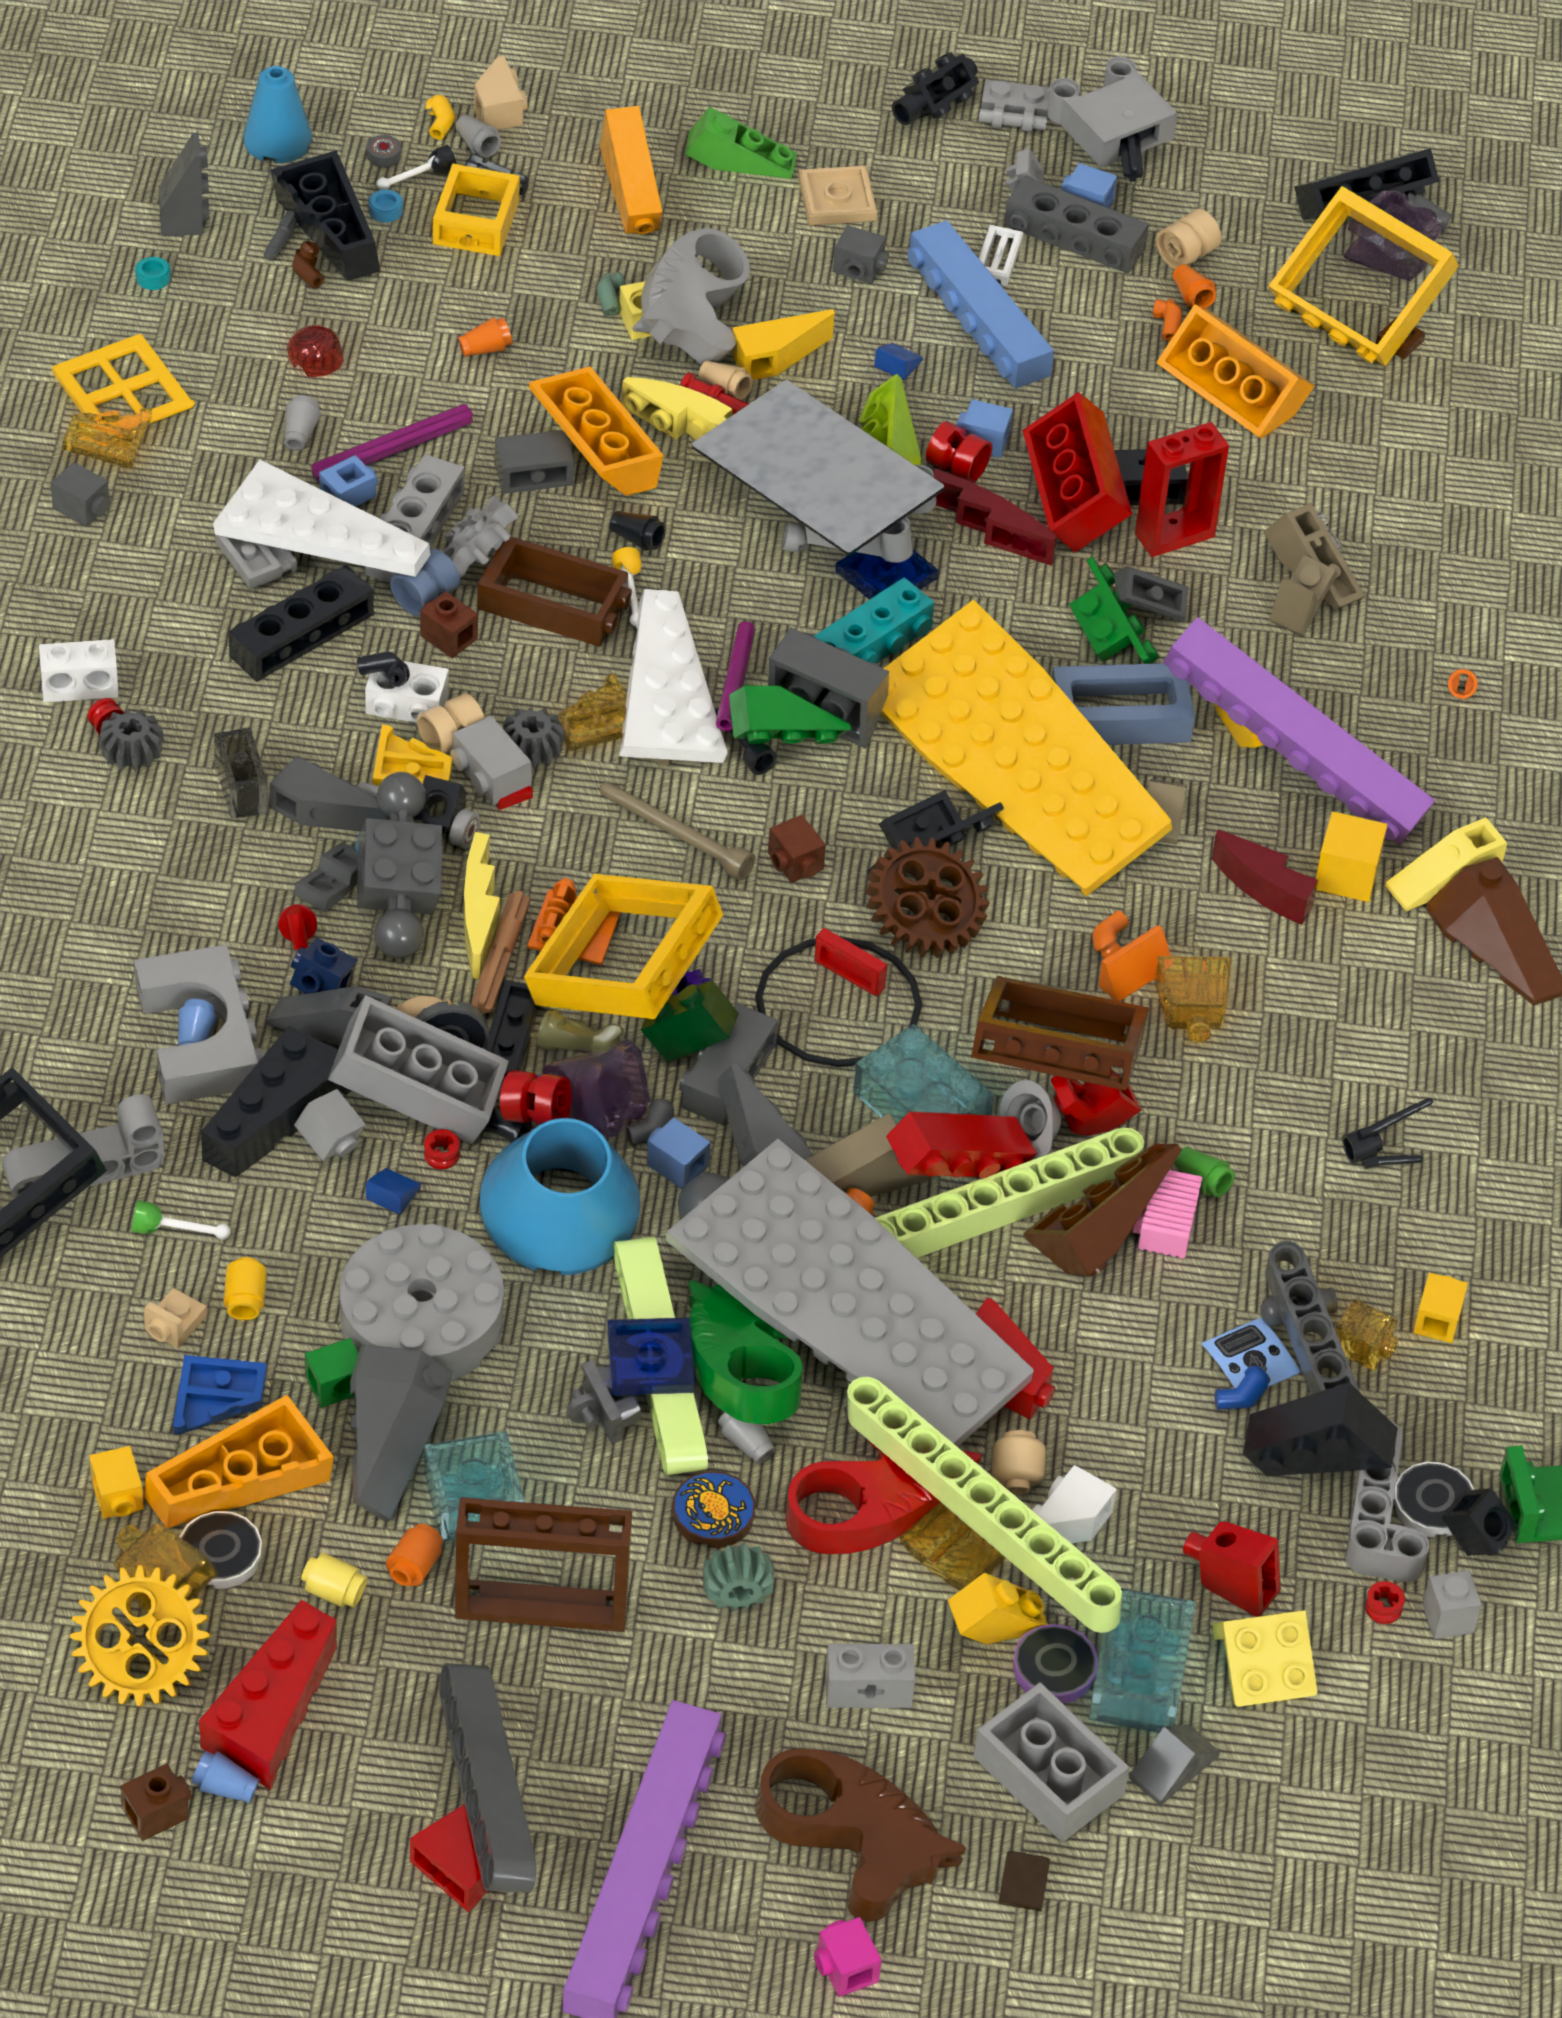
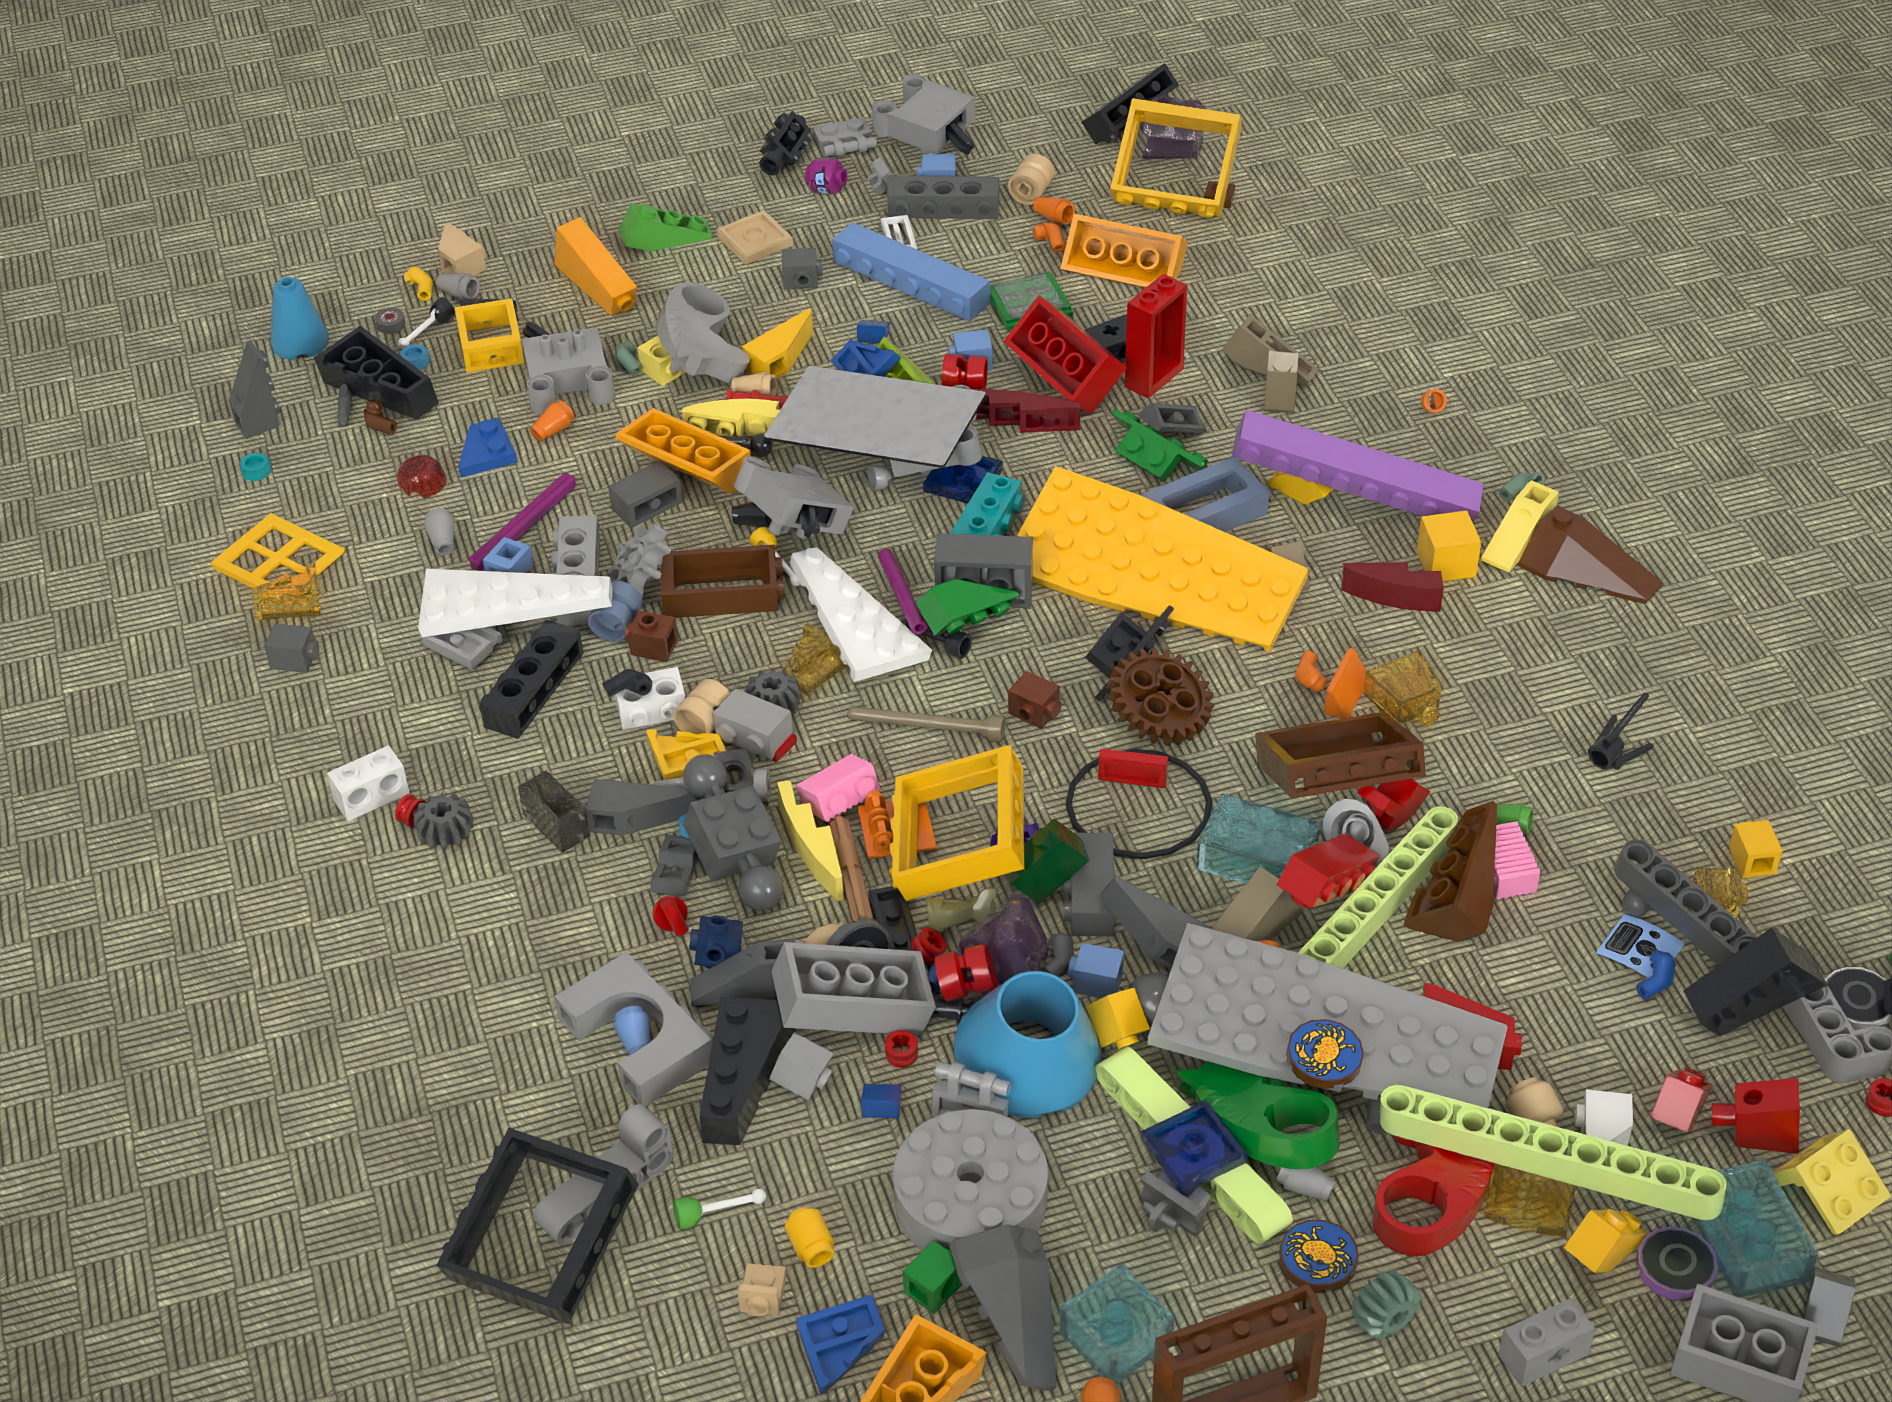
camera: 20 degrees left, 5 degrees down
(400, 343) = (486, 448): none -> blue wing
(455, 1212) = (953, 1096): none -> light grey plate
(528, 1049) = (929, 943): none -> red bush
(535, 276) = (565, 365): none -> light grey piece
(536, 861) = (838, 787): none -> bright pink brick
(659, 1204) = (1118, 1019): none -> yellow brick
(670, 444) = (757, 444): none -> black pin
(674, 531) = (793, 499): none -> light grey piece
(823, 1319) = (1324, 1053): none -> tile
(856, 396) = (864, 359): none -> blue wing
(959, 148) = (825, 176): none -> magenta head
(1102, 381) = (1014, 297): none -> clear piece
(1170, 1514) = (1682, 1098): none -> slope
(1502, 818) = (1518, 483): none -> sand green arm

